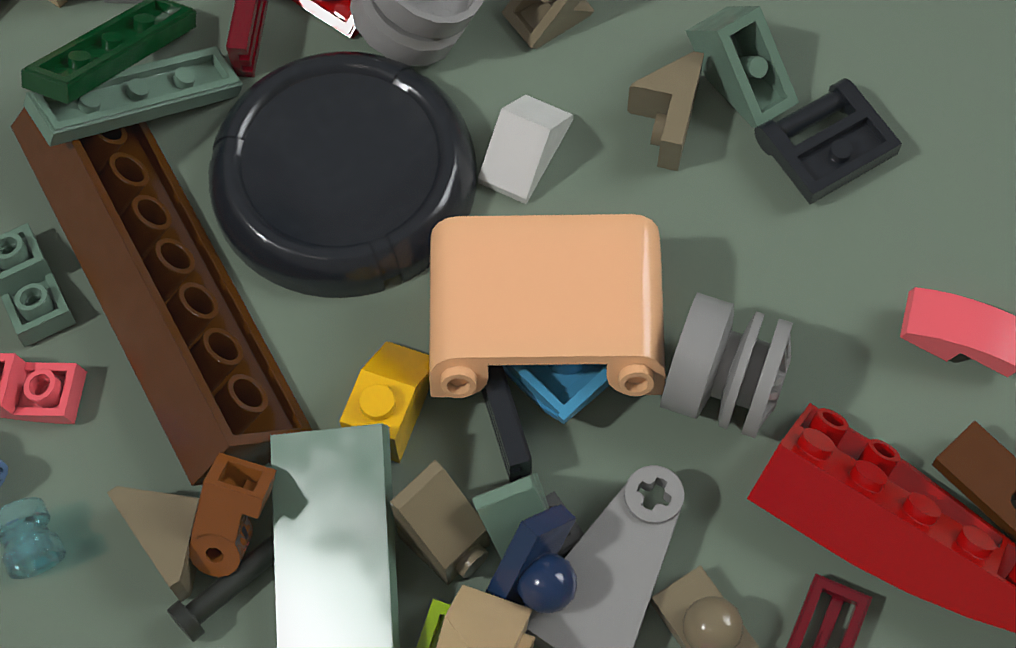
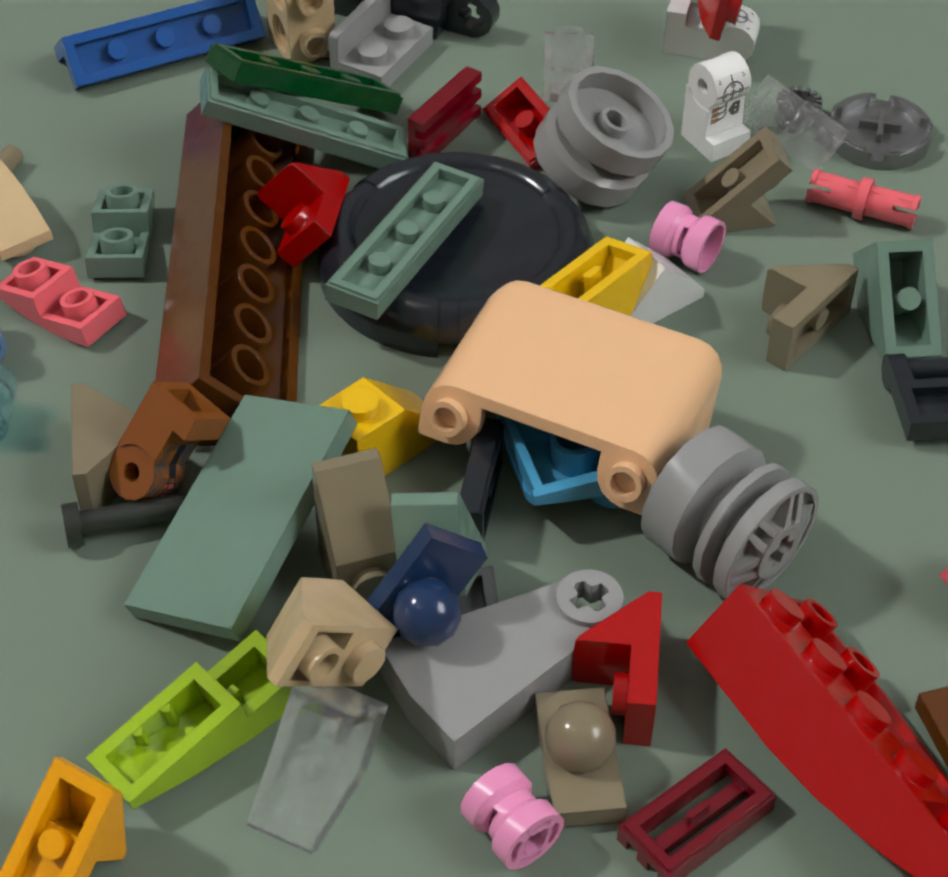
camera: 25 degrees right, 20 degrees down
(199, 193) = (308, 203): none -> red slope
(306, 194) = (404, 241): none -> sand green tile
(498, 168) = (605, 275): none -> yellow slope
(524, 66) = (687, 236): none -> bright pink wheel
(711, 524) = (625, 655): none -> red slope

